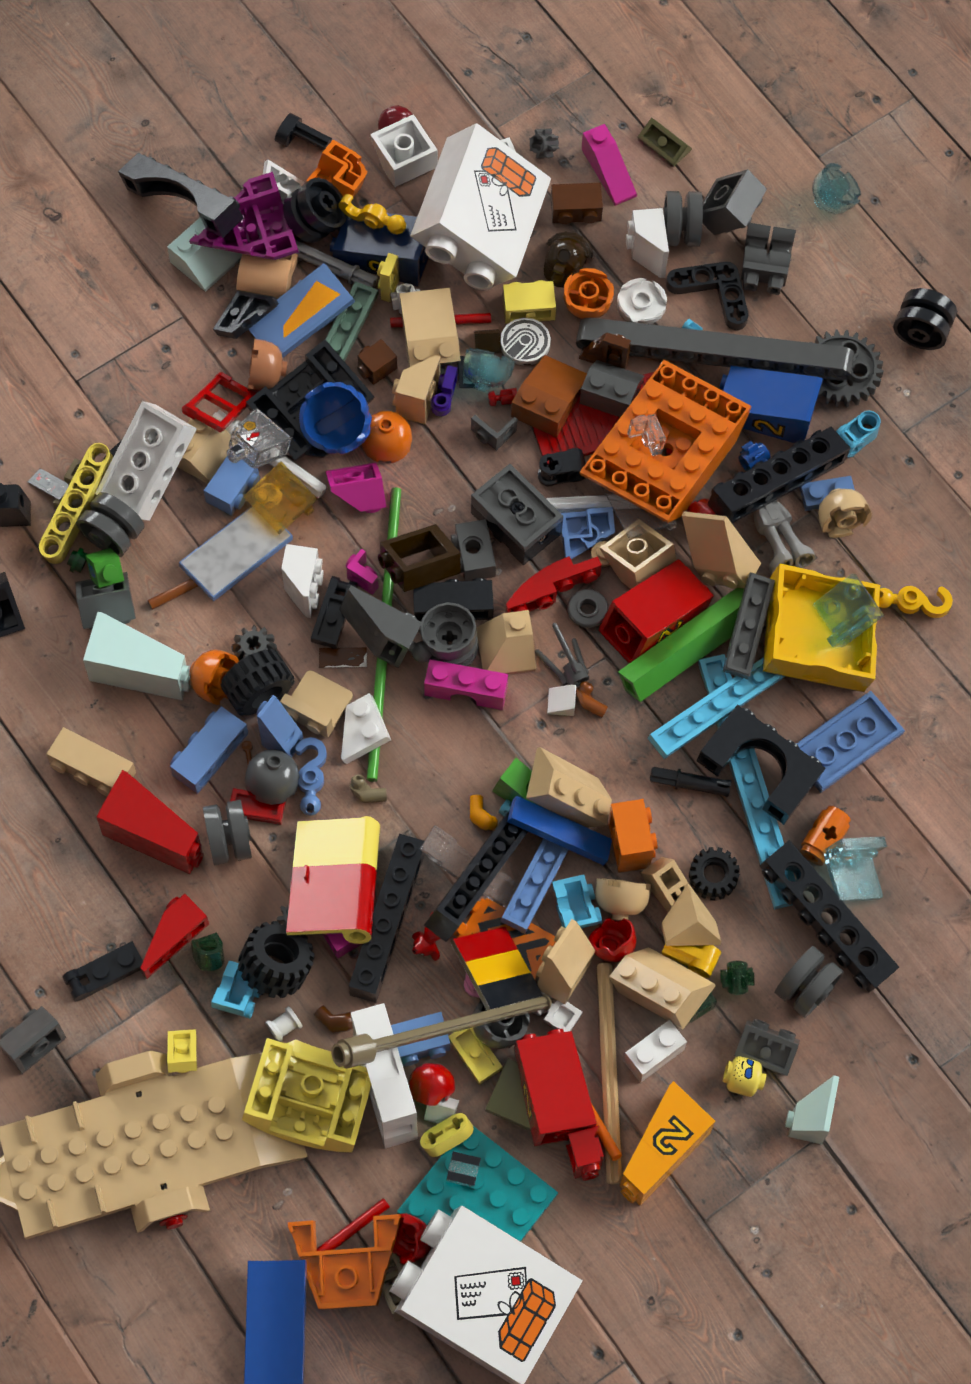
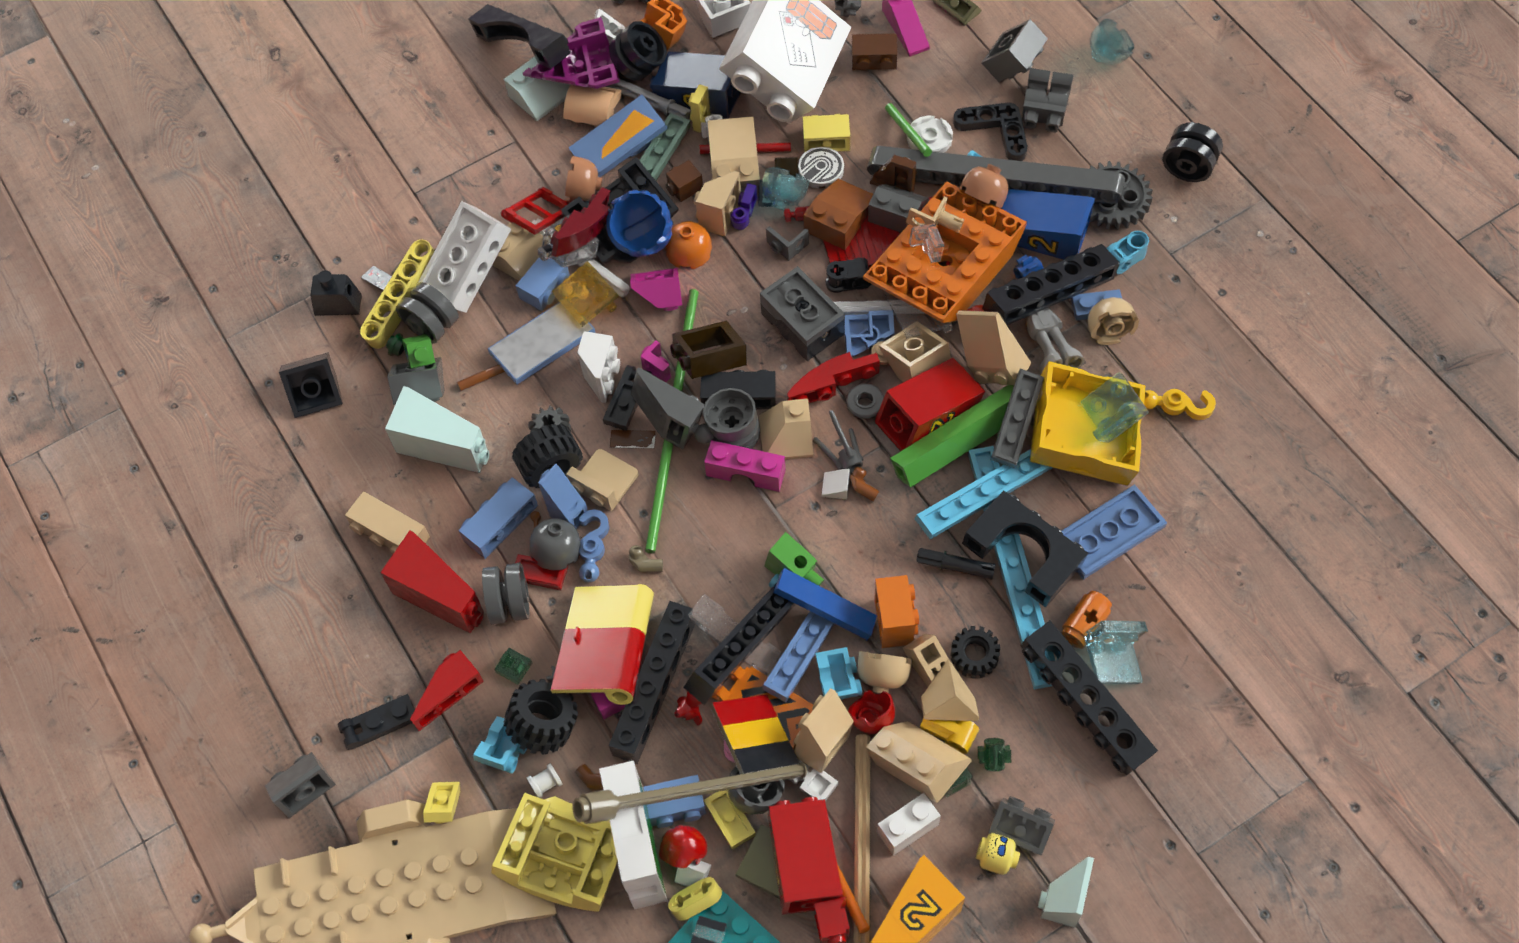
camera: 10 degrees right, 5 degrees down
(208, 673) = (501, 446): orange cylinder -> none
(208, 952) = (480, 712): clear green plate -> none
(239, 907) = (513, 666): none -> clear green tile
(243, 312) = (567, 137): black wing -> none
(274, 422) = (582, 226): none -> dark red slope
(362, 729) = (644, 504): white wing -> none
(373, 215) = (687, 53): yellow piece -> none
(476, 536) = (761, 333): dark grey brick -> none
(479, 815) = (749, 588): light orange arm -> none
(565, 256) = (862, 98): dark brown helmet -> none
(568, 790) = (835, 566): tan slope -> none
(588, 293) = (880, 125): orange cylinder -> none
(625, 305) = (908, 130): none -> bright green bar
(648, 240) = (937, 81): white slope -> none
(661, 405) = (940, 217): none -> tan bracket
(684, 219) = (968, 63): dark grey wheel -> none
(706, 365) = (986, 184): none -> nougat cylinder
(812, 984) = (1064, 759): dark grey wheel -> none

